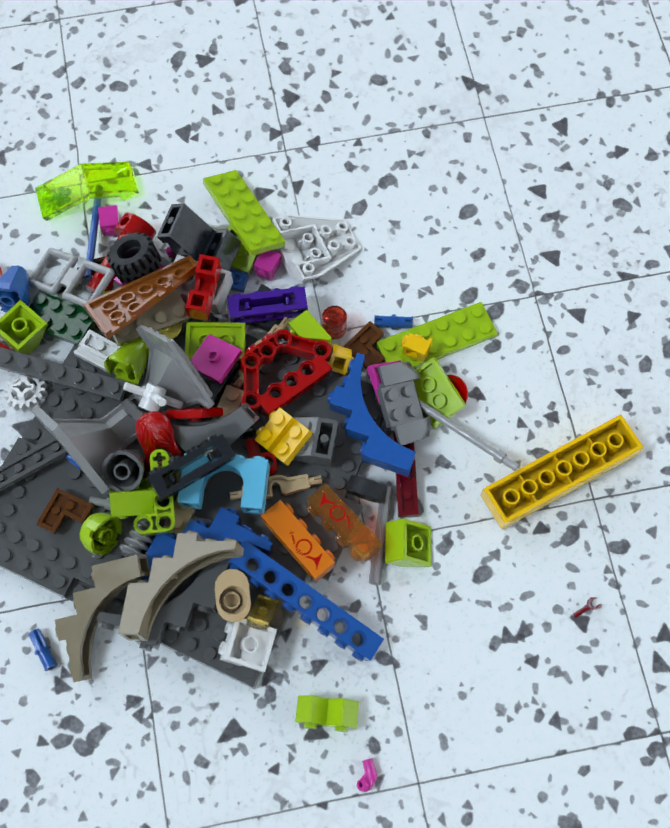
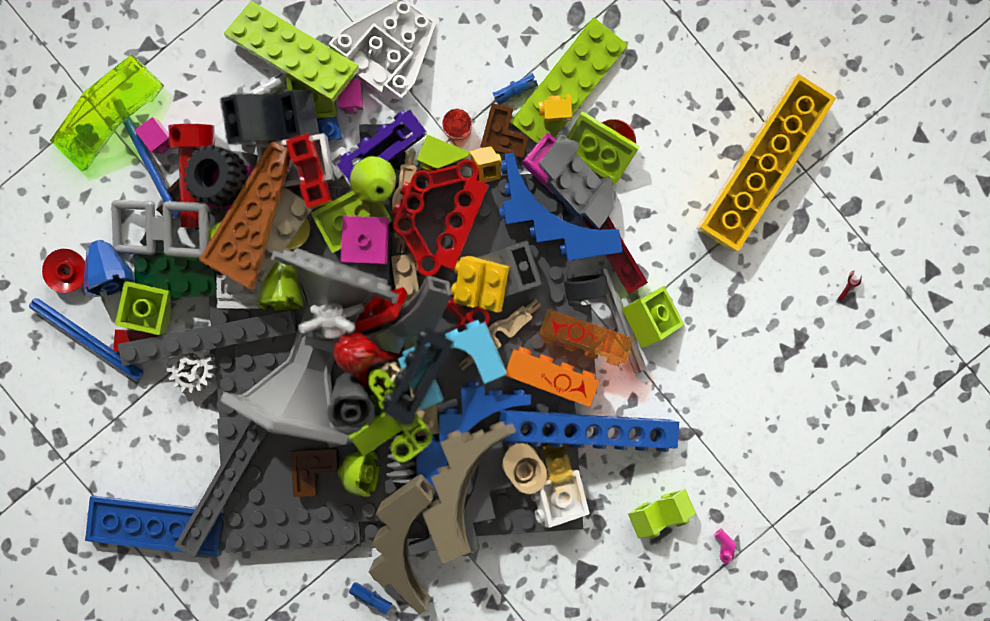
camera: 25 degrees left, 20 degrees up
(249, 328) = (373, 179): none -> lime cone
(499, 455) = (699, 185): light grey bar -> none

